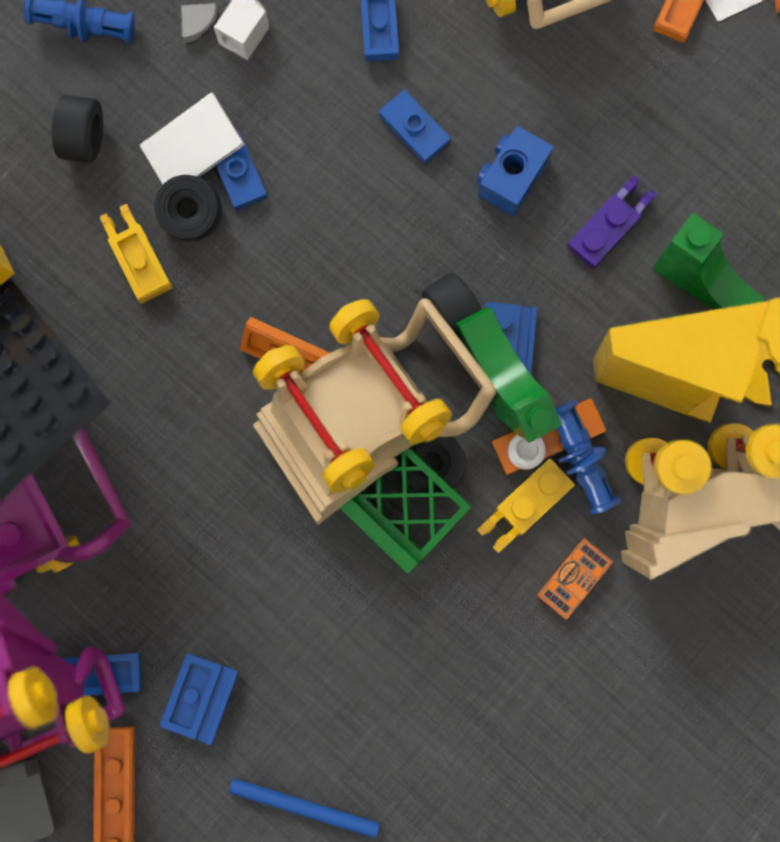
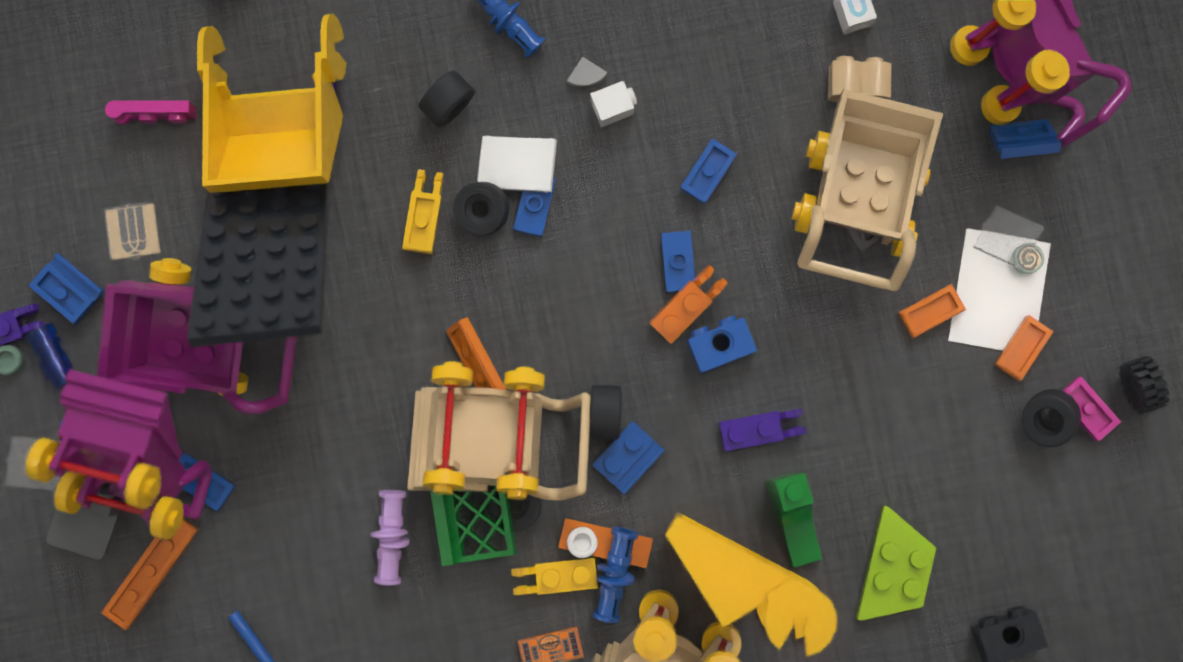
camera: 30 degrees right, 5 degrees up
(199, 698) = (252, 544): blue plate -> none
(333, 586) = (390, 537): none -> lavender piece
(454, 158) = (686, 306): none -> orange hinge
(518, 397) = (602, 488): green arch -> none

